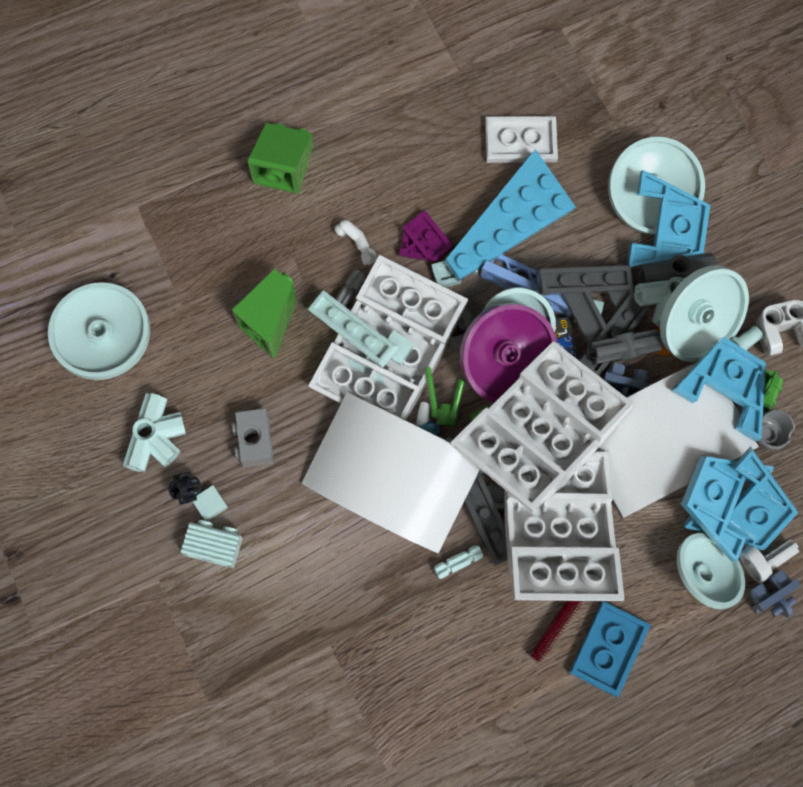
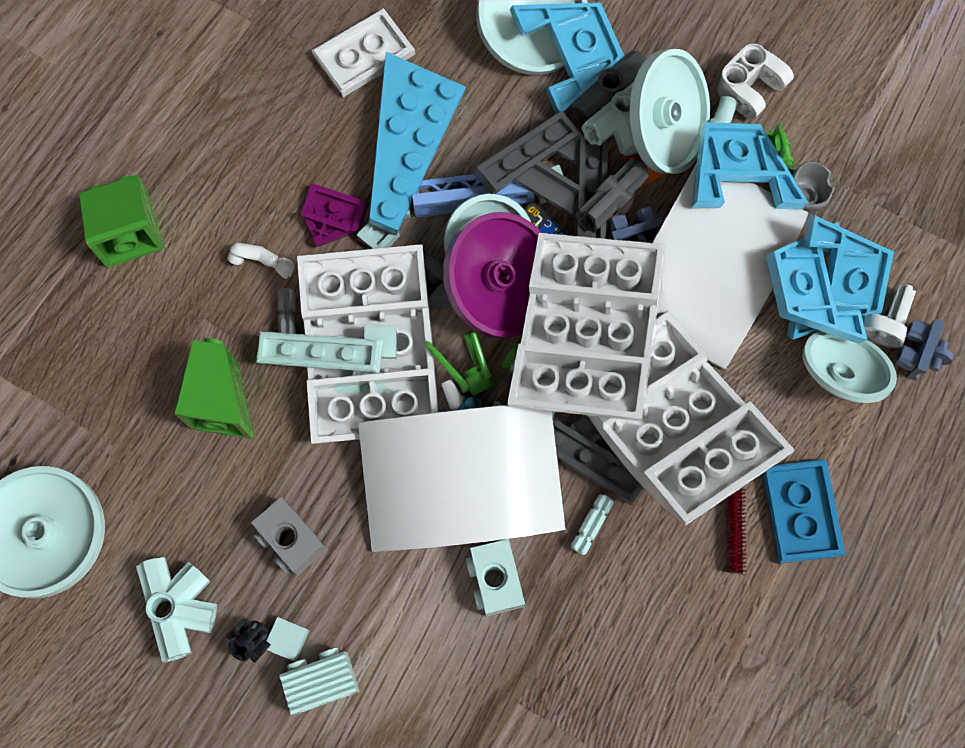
camera: 30 degrees left, 0 degrees up
(381, 542) = (495, 557): none -> light aqua brick

